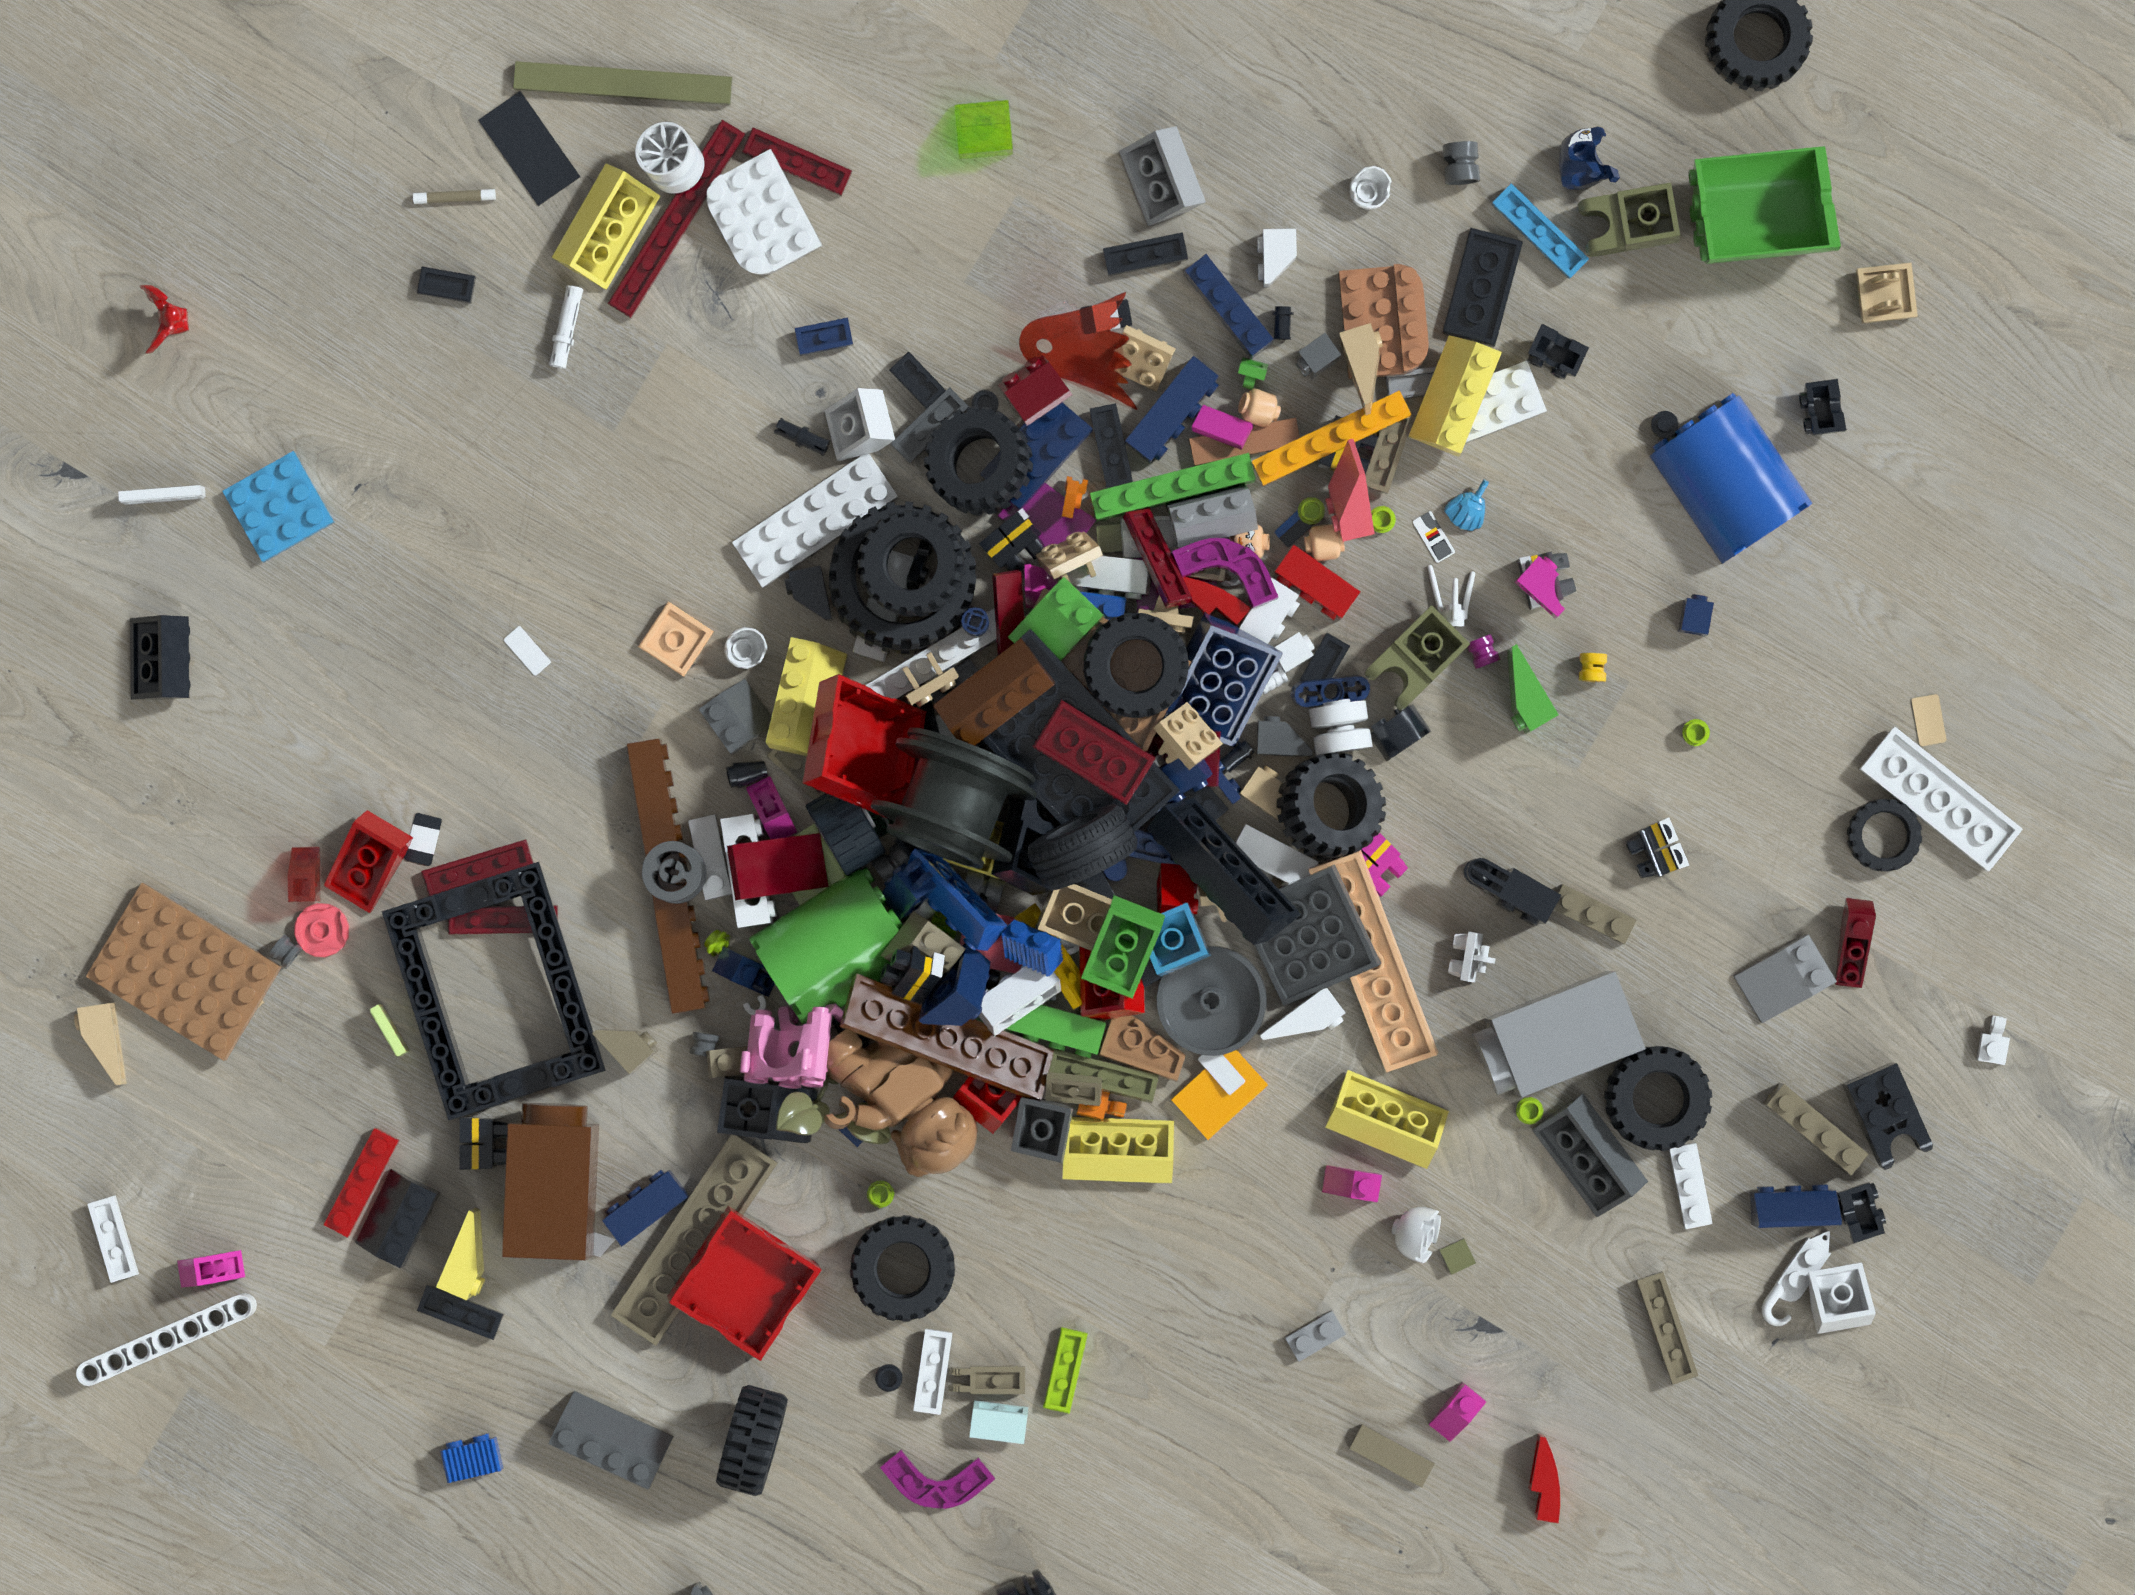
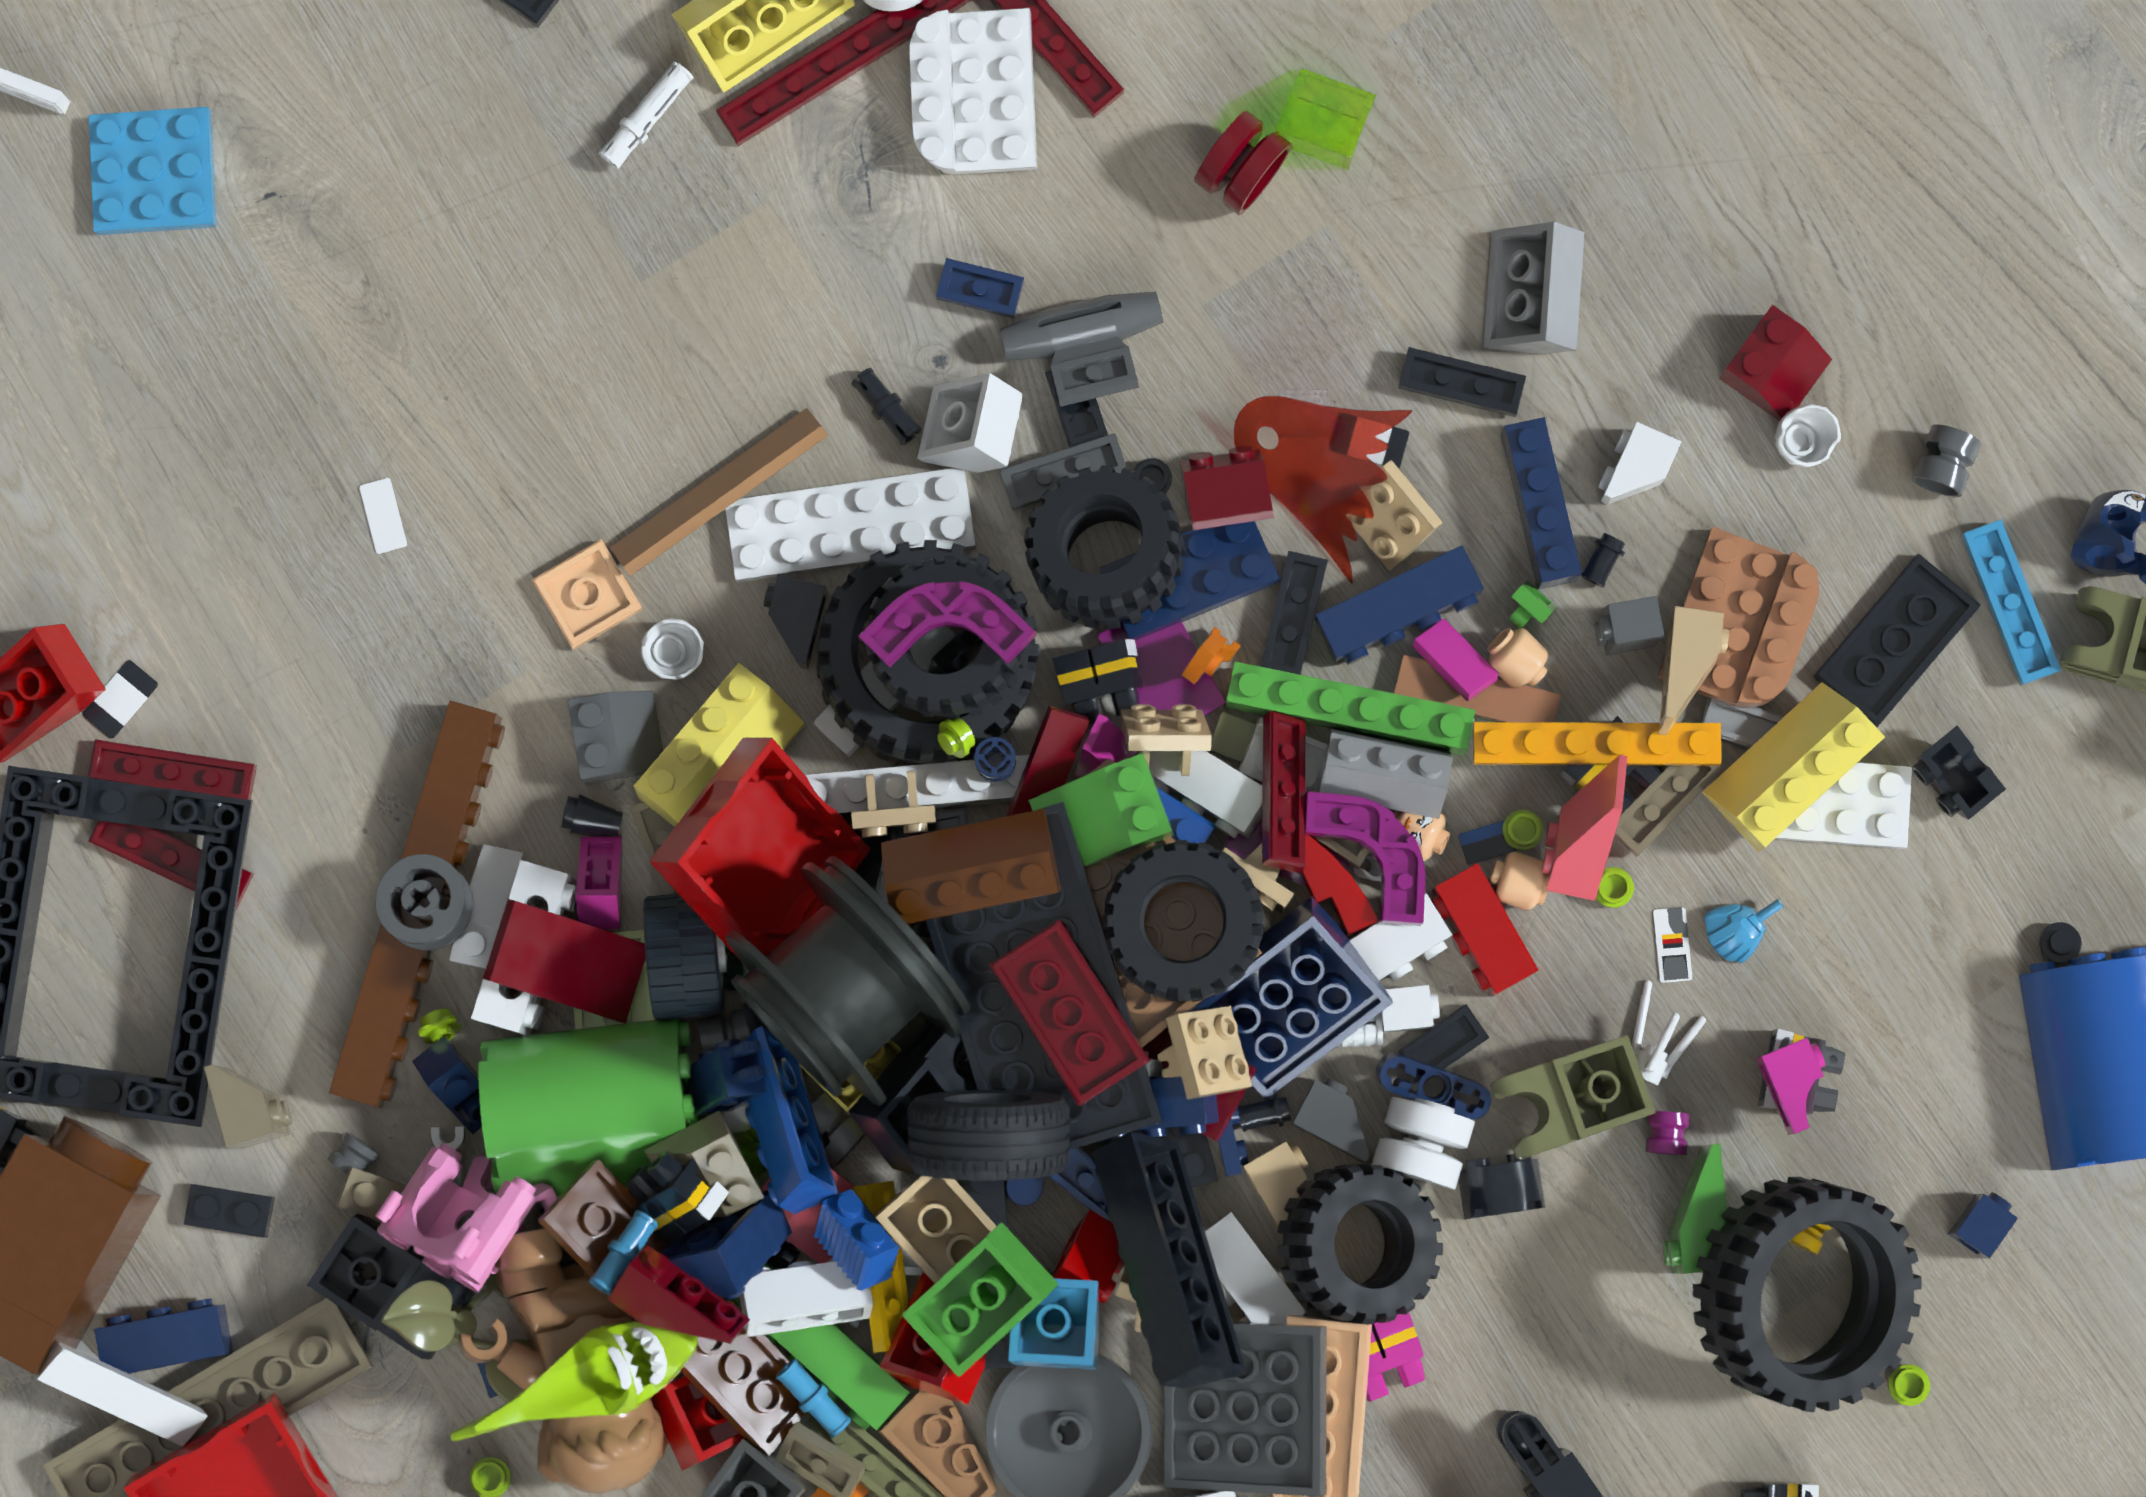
camera: 30 degrees right, 5 degrees down
(640, 1249) = (121, 1394): none -> white slope
(645, 1112) = (229, 1210): none -> black plate
(725, 538) = (718, 491): none -> medium nougat tile
(899, 1020) = (623, 1252): none -> dark azure pin
(903, 545) = (944, 605): none -> magenta plate
(905, 340) = (1085, 343): none -> dark grey plate
(921, 1098) = (600, 1375): none -> lime piece
(939, 1034) = (670, 1299): none -> dark red slope
(946, 620) = (955, 737): none -> lime plate
(948, 183) = (1242, 162): none -> dark red wheel
(1050, 1053) = (813, 1398): none -> dark azure pin
(1331, 152) = (1777, 364): none -> dark red slope
(1656, 702) = (1876, 1312): none -> black tyre

